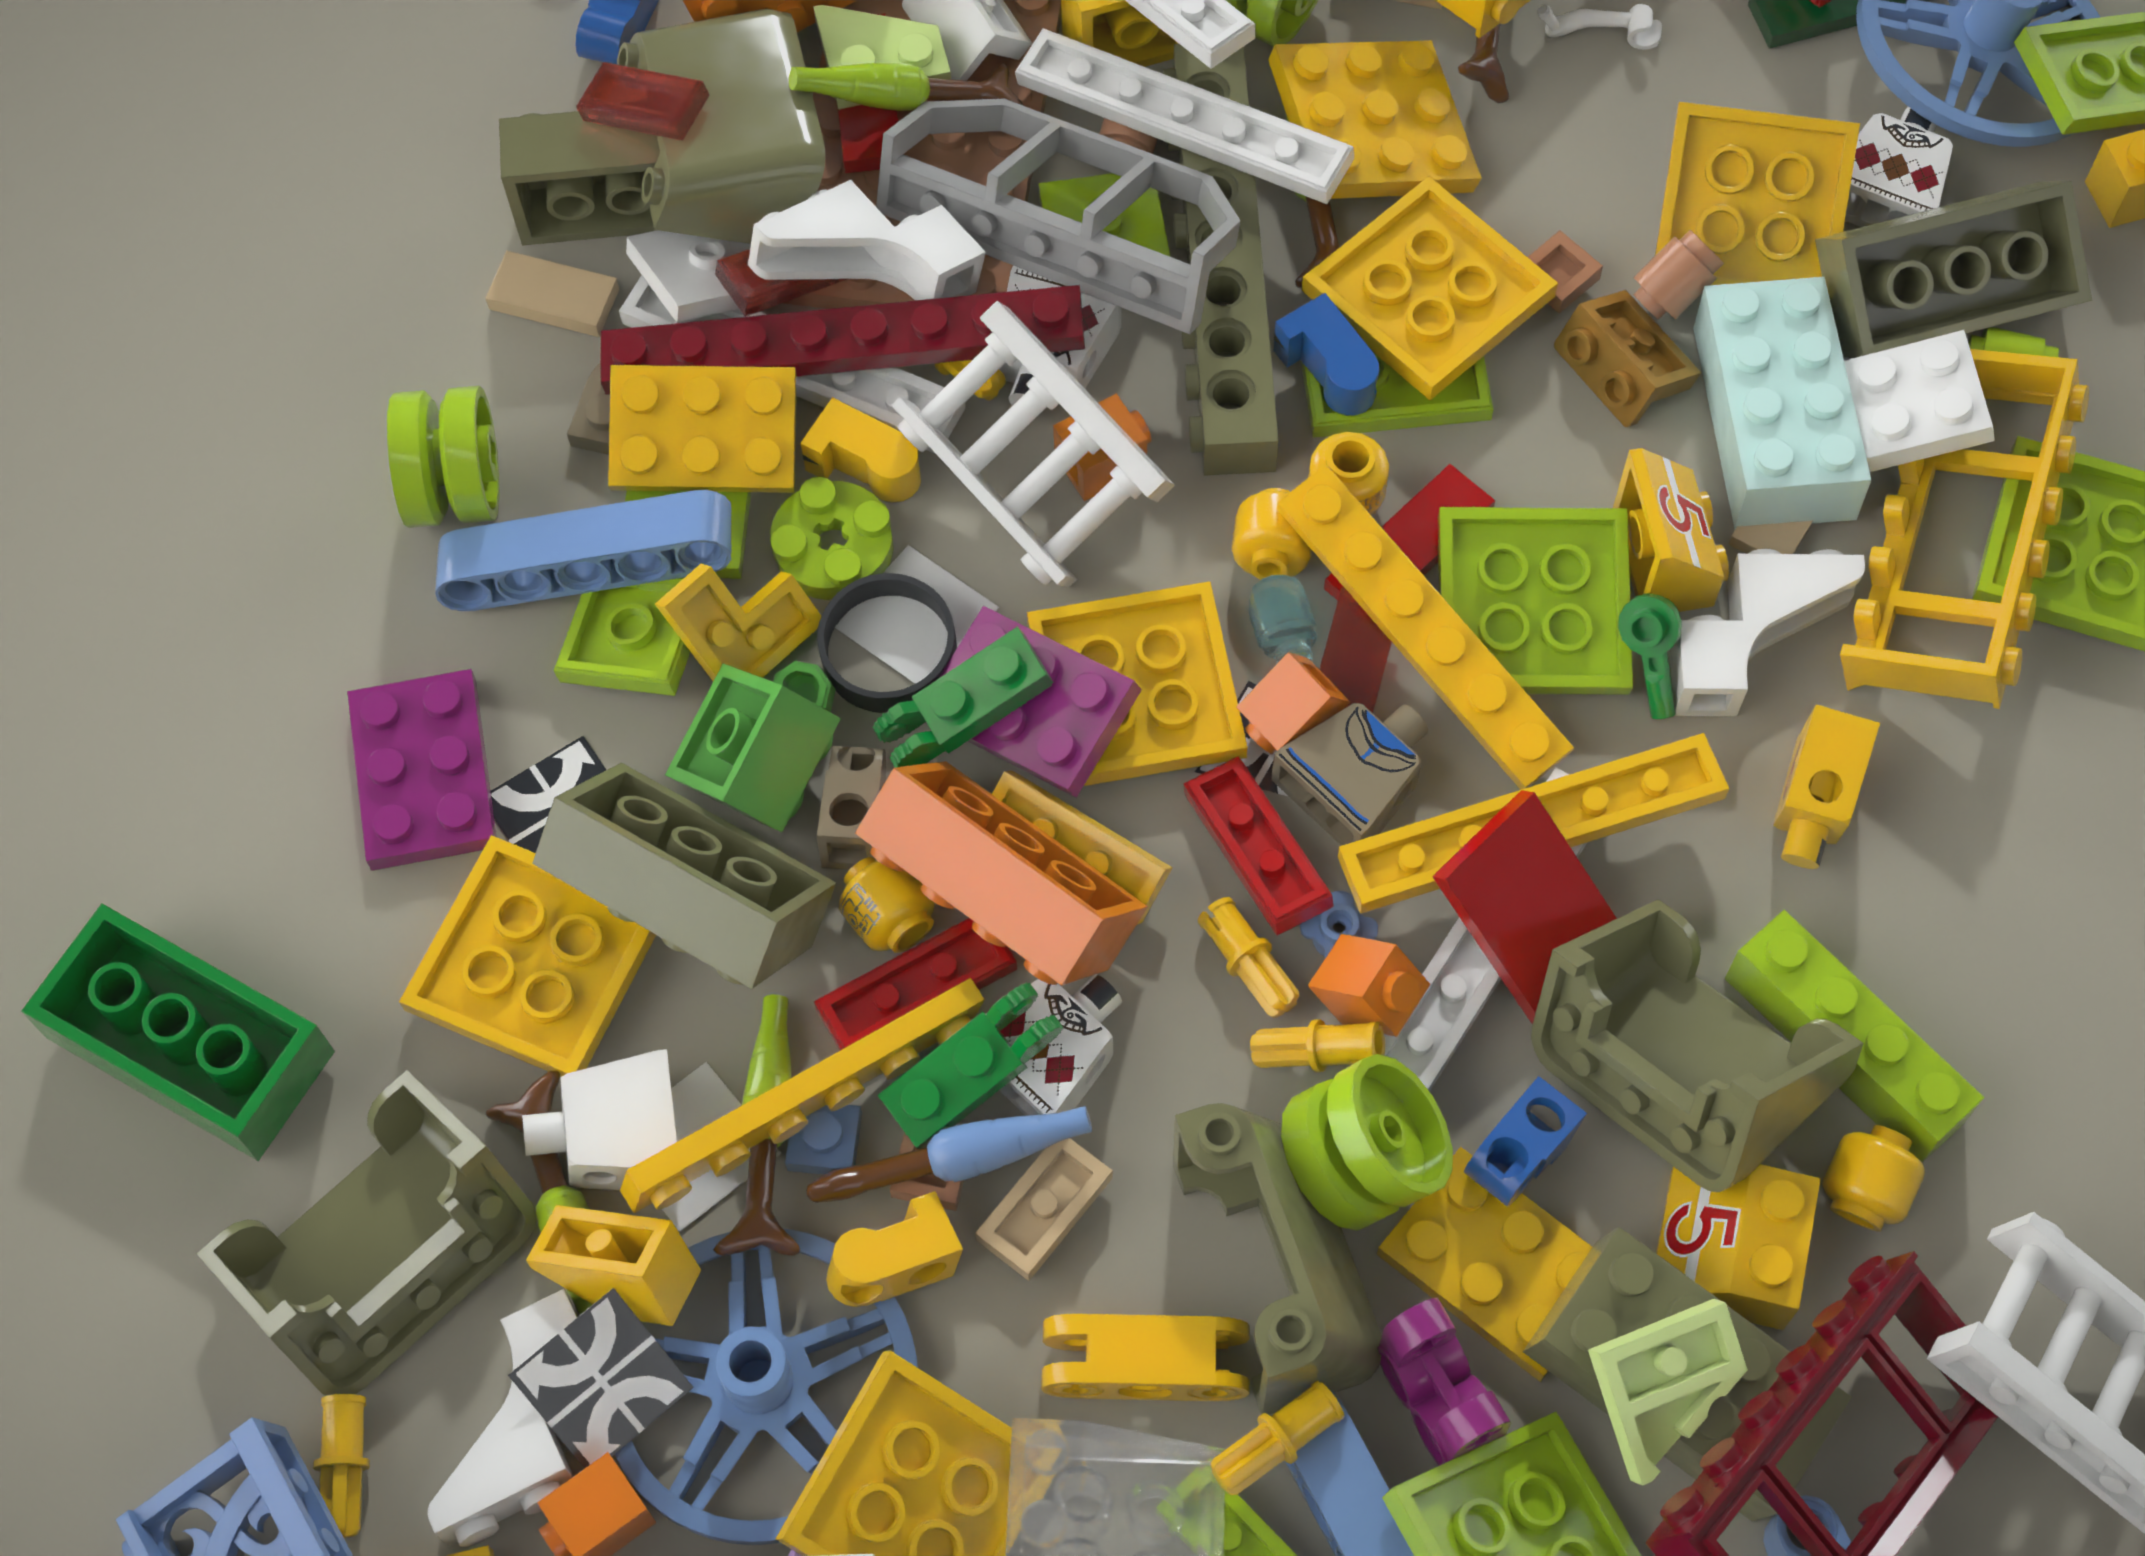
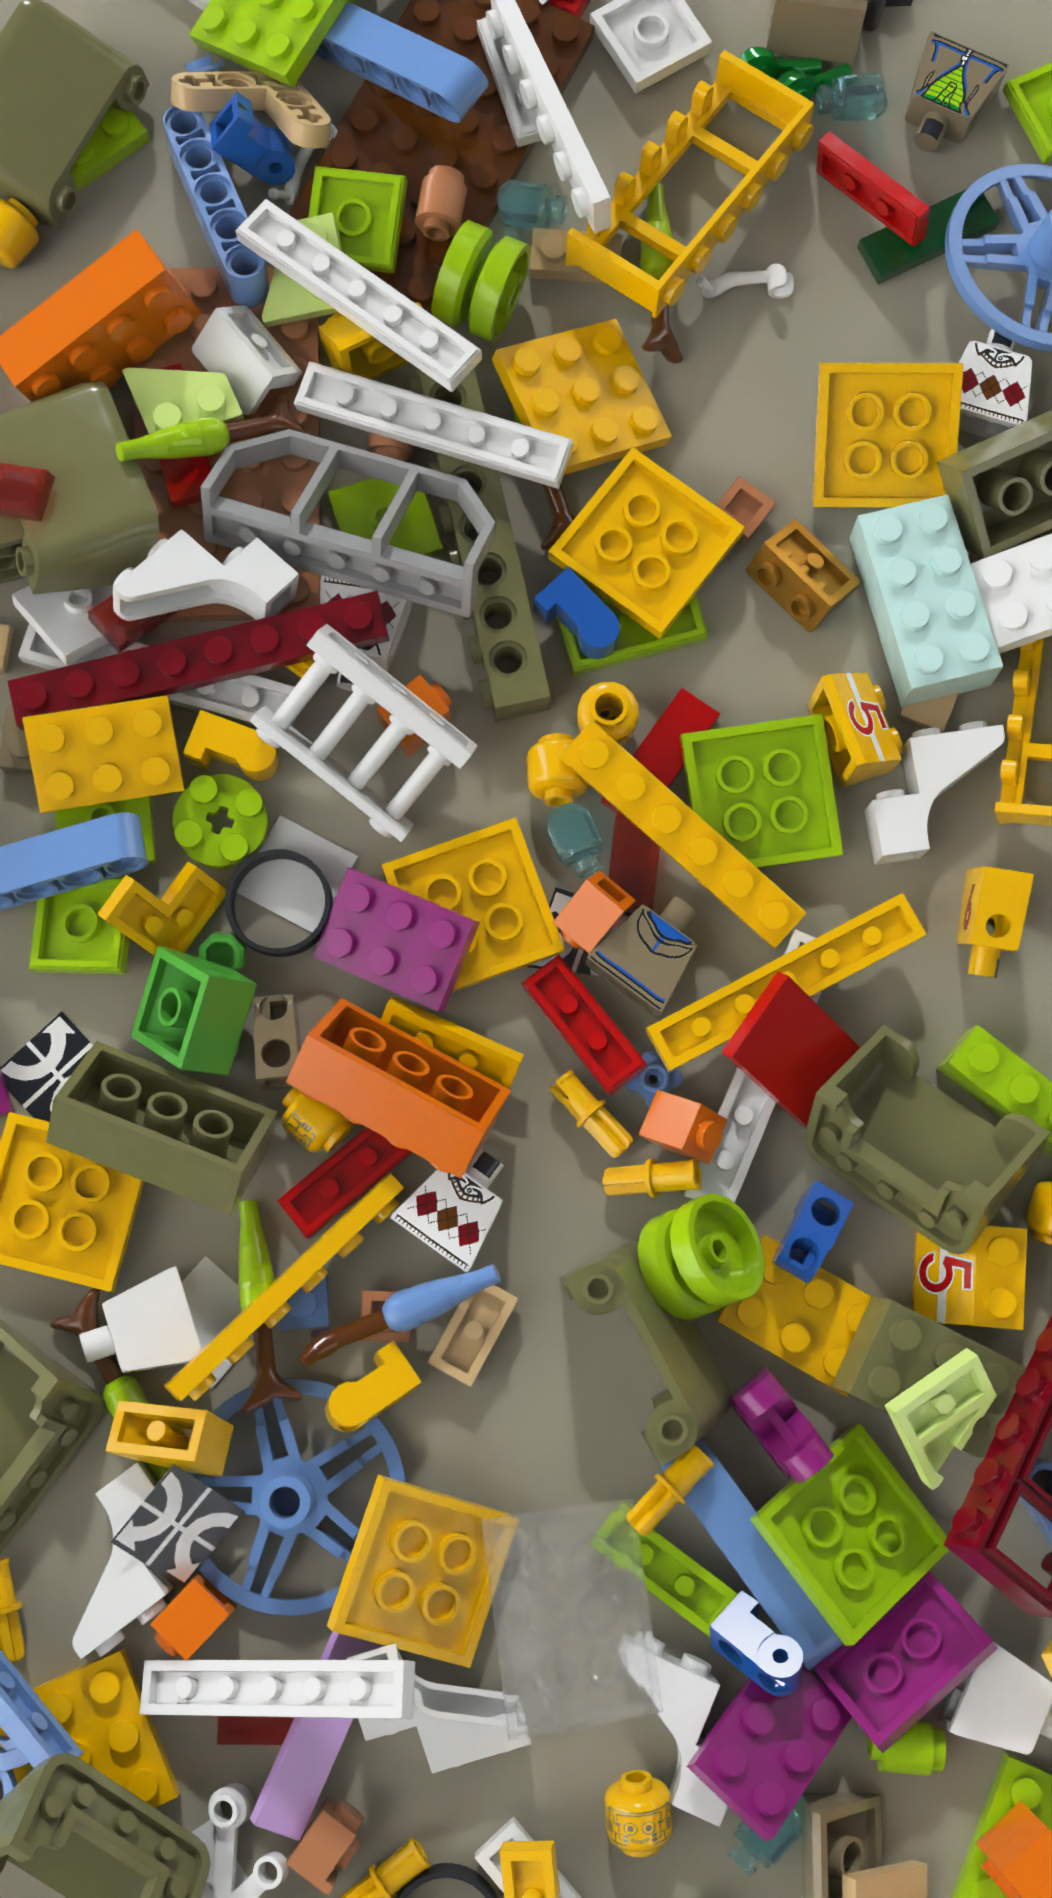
camera: 15 degrees left, 15 degrees up
(965, 700) = (350, 950): green hinge -> none
(967, 1068) = (399, 1249): green hinge -> none
(1144, 1357) = (563, 1434): yellow piece -> none
(1651, 628) = (854, 811): green plate -> none
(1676, 276) = (834, 506): nougat brick -> none

